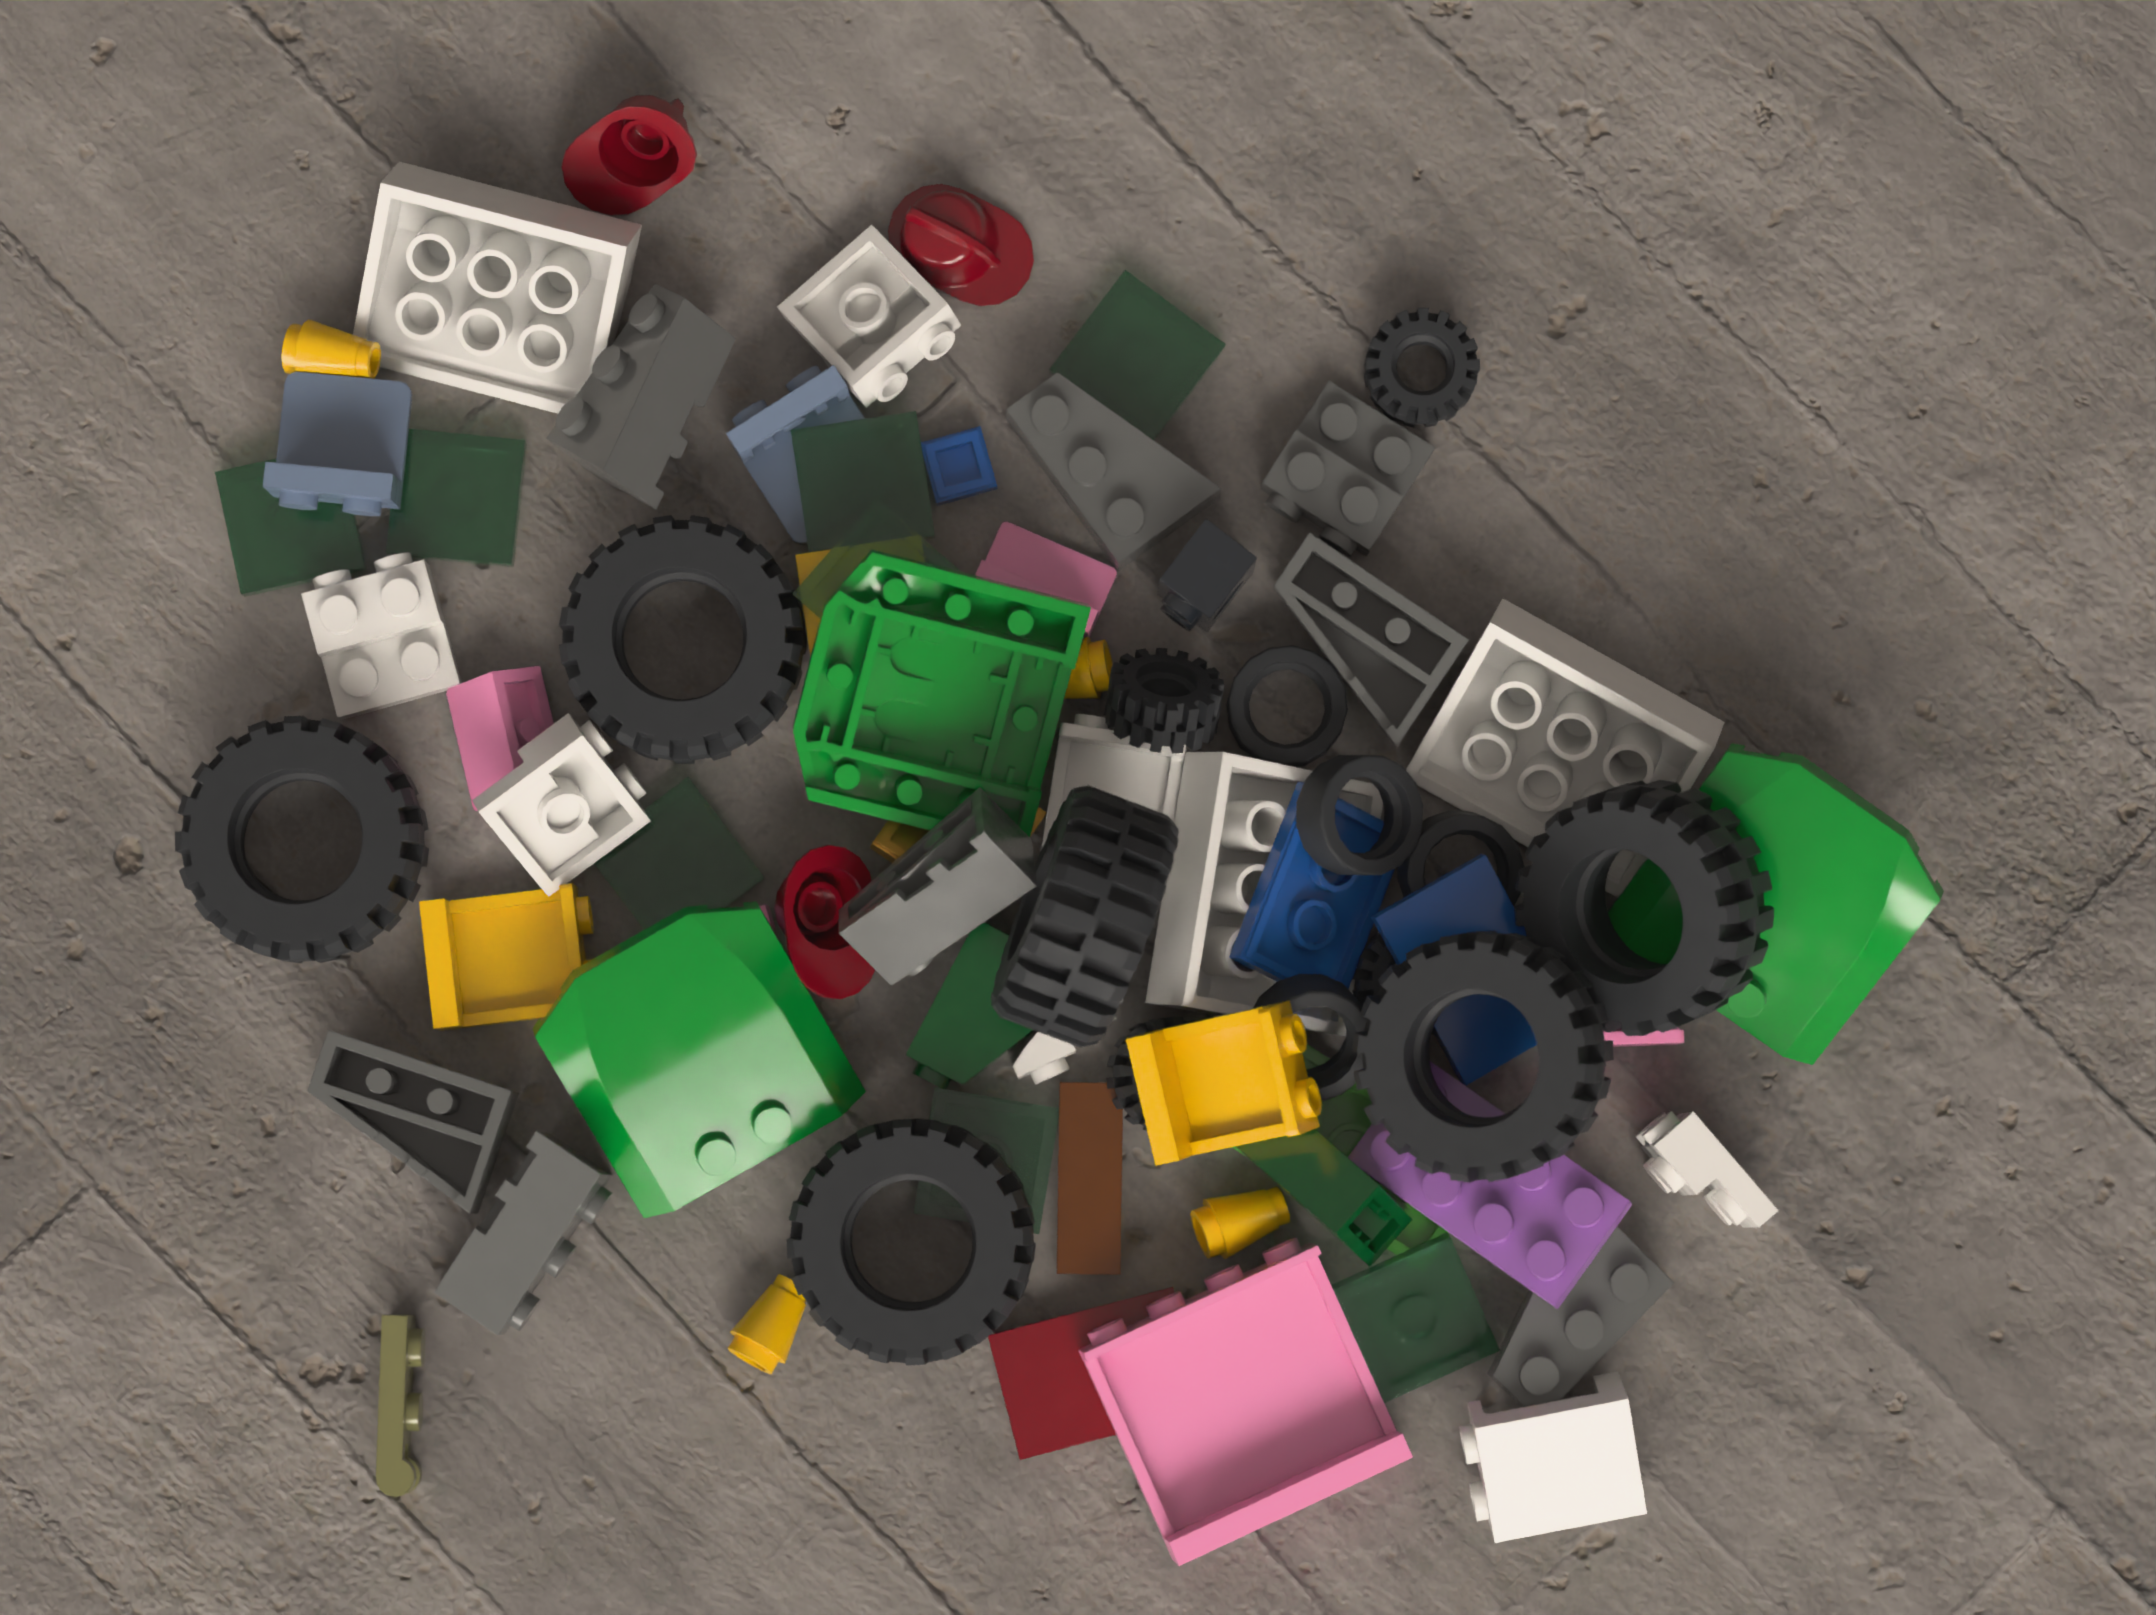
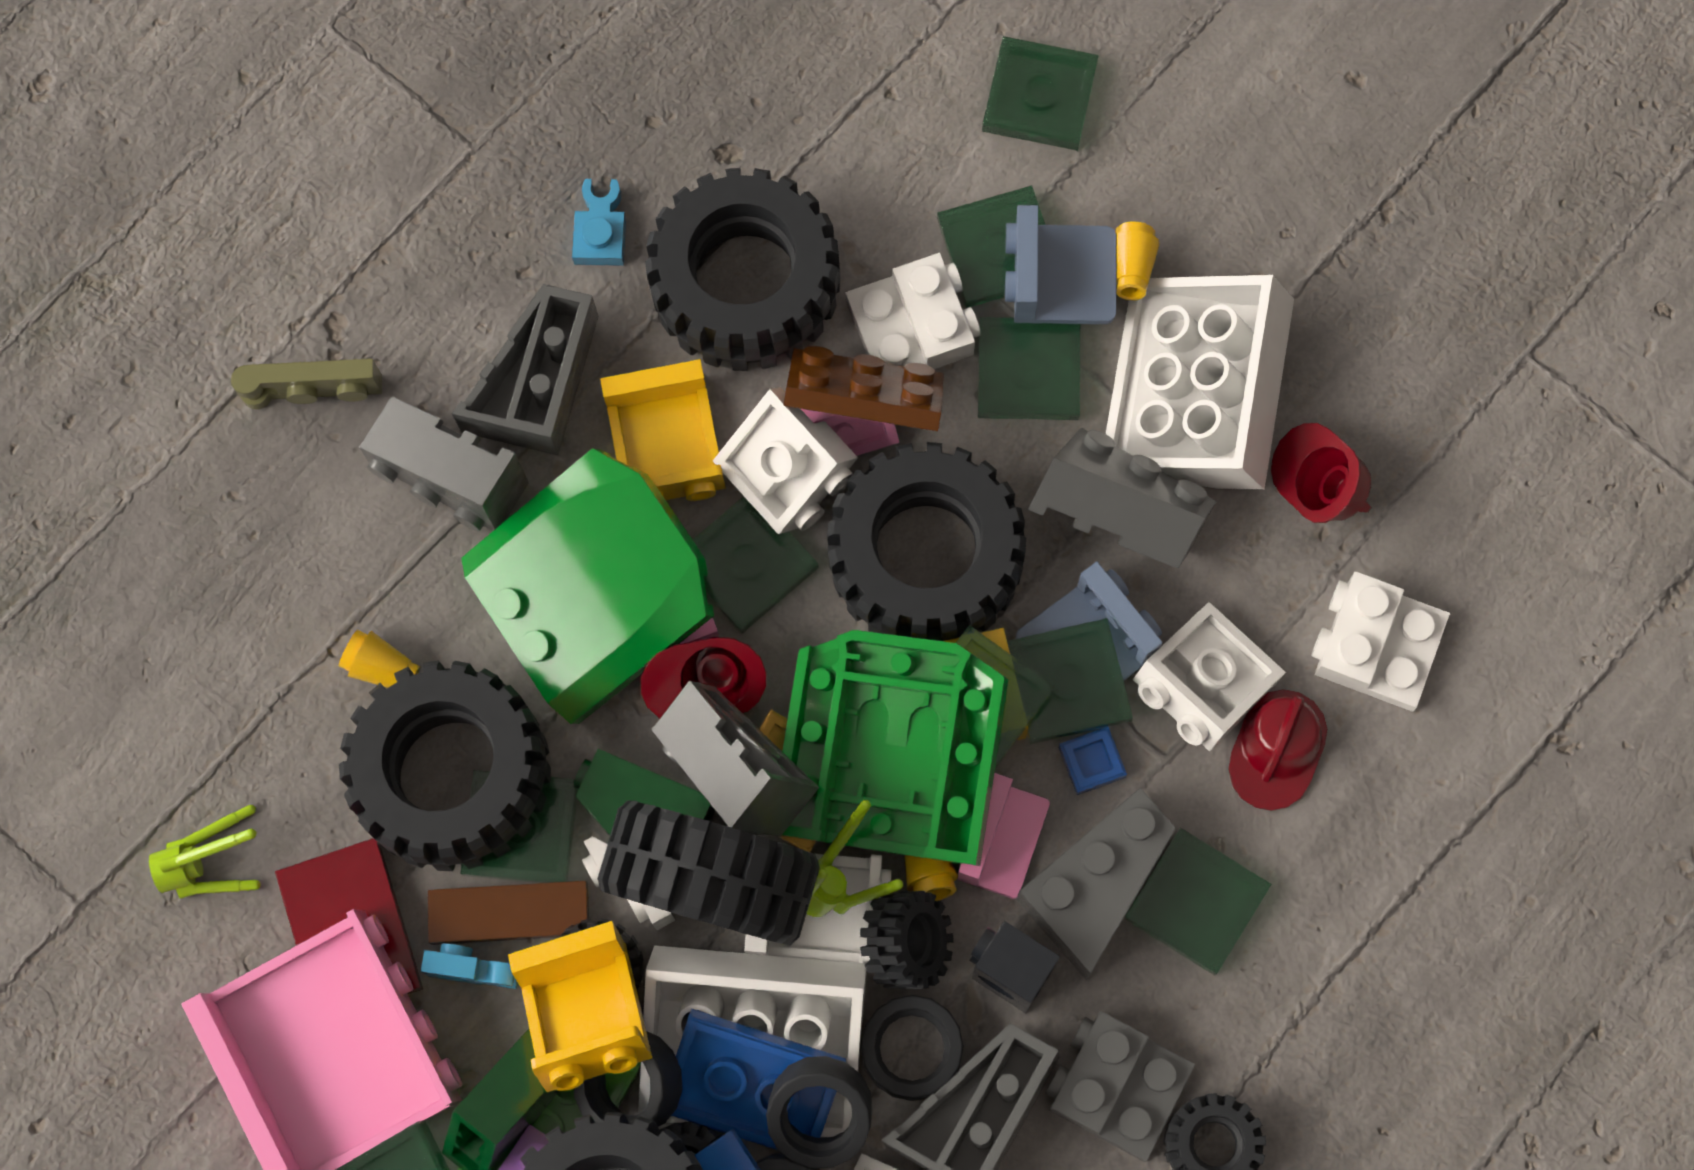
camera: 90 degrees right, 10 degrees down
(86, 450) = (1040, 93): none -> clear green tile
(225, 1025) = (599, 232): none -> dark azure plate
(481, 697) = (865, 388): none -> reddish brown plate
(840, 109) = (1379, 641): none -> white plate
(1005, 1577) = (181, 860): none -> lime plant
(1105, 779) = (831, 883): none -> lime plant
(1149, 1241) = (457, 964): none -> dark azure plate
(1238, 1220) = (475, 1036): yellow cone -> none

